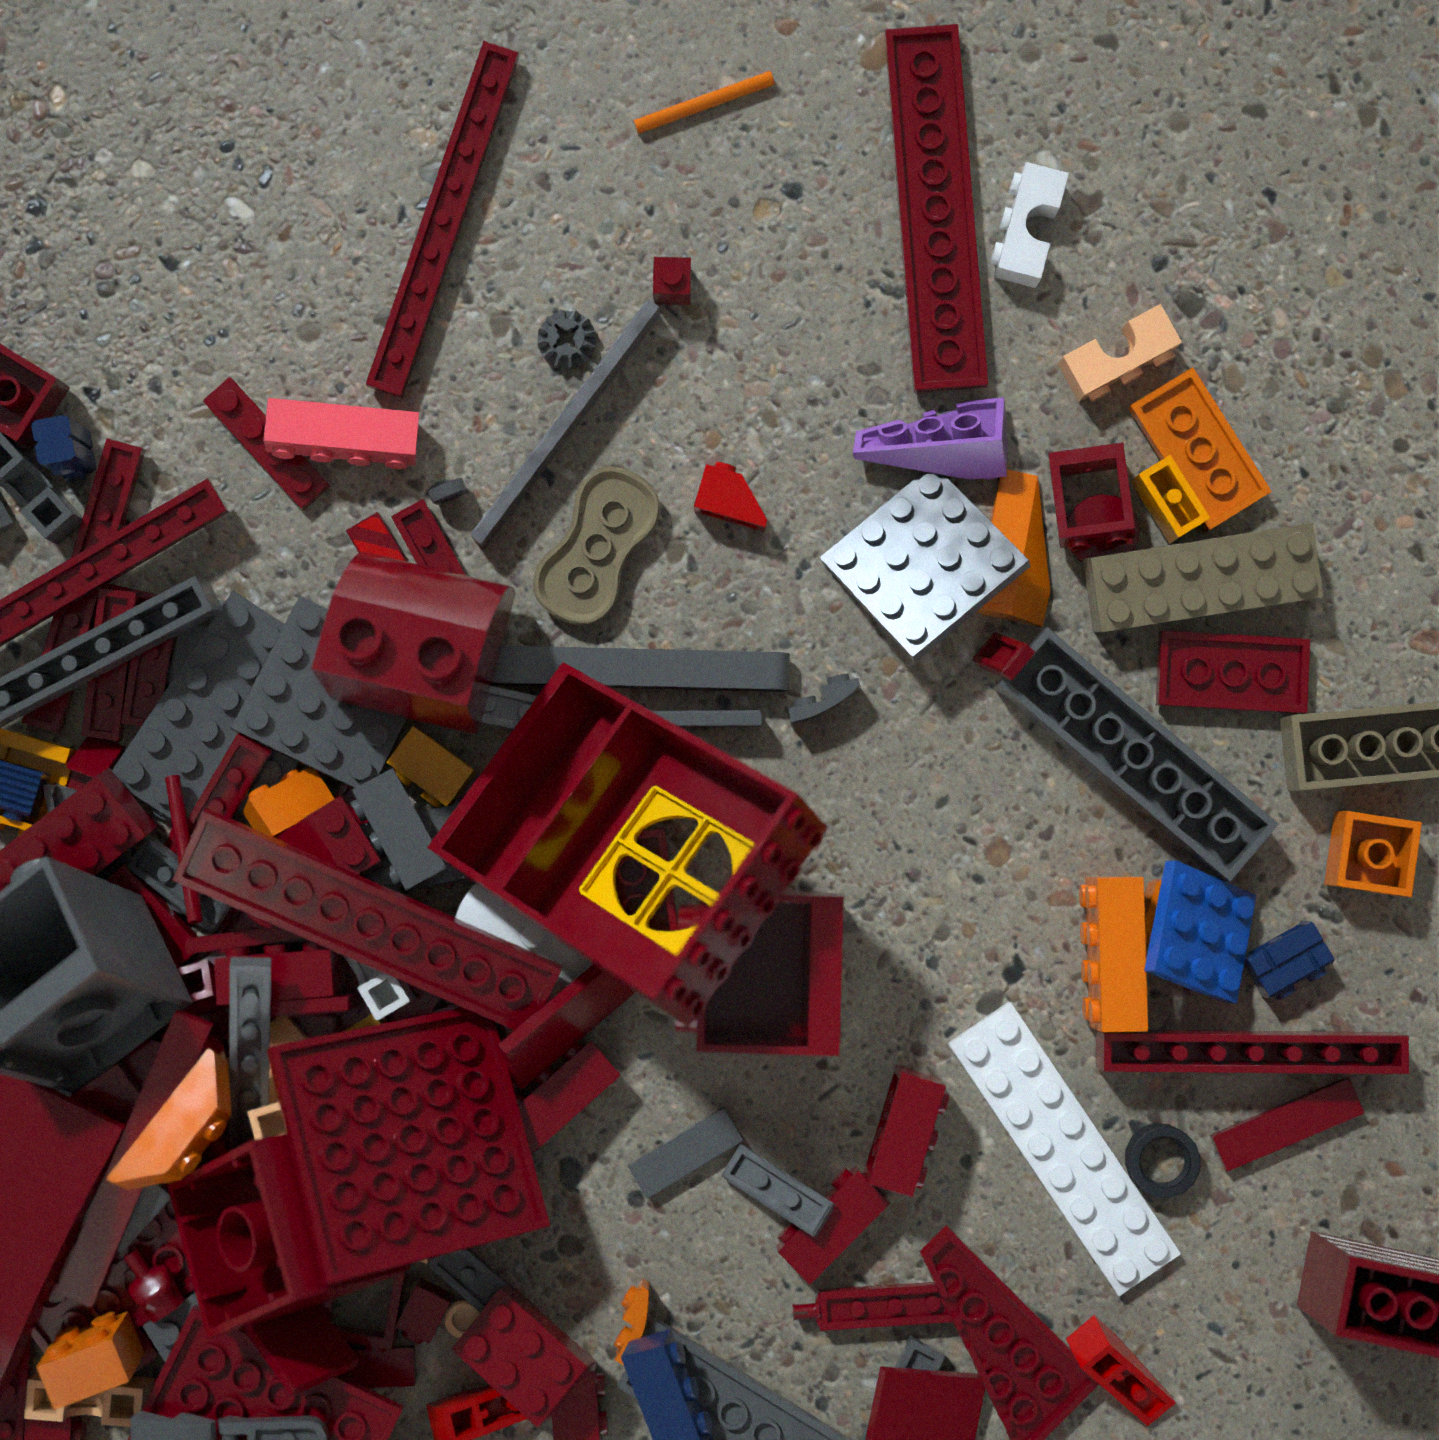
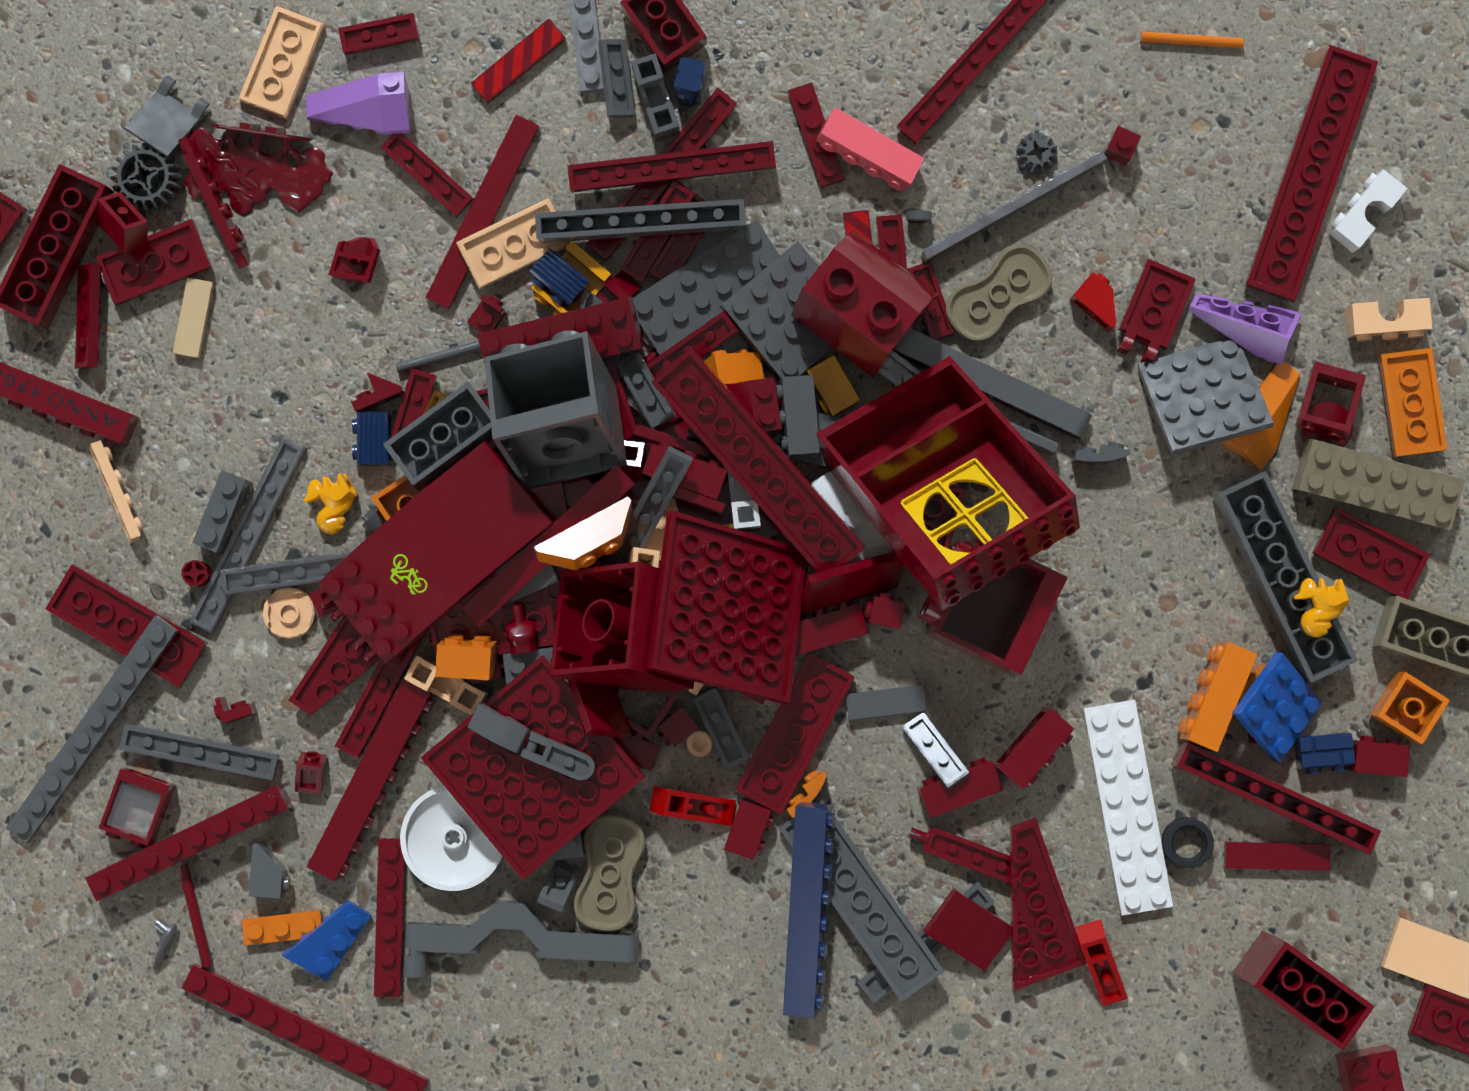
camera: 25 degrees right, 0 degrees up
(182, 838) = (658, 366): dark red bar -> none
(523, 1355) = (733, 779): dark red brick -> none
(526, 611) = (935, 317): none -> dark red tile
(585, 1239) = (795, 733): none -> dark red plate
(628, 1038) = (884, 611): none -> dark red brick
(810, 475) = (1154, 309): none -> dark red tile
(1003, 656) = (1228, 477): dark red tile -> none
(1169, 499) = (1379, 425): light orange brick -> none
(1206, 768) = (1327, 602): none -> light orange animal
(1363, 935) = (1380, 758): none -> dark red brick

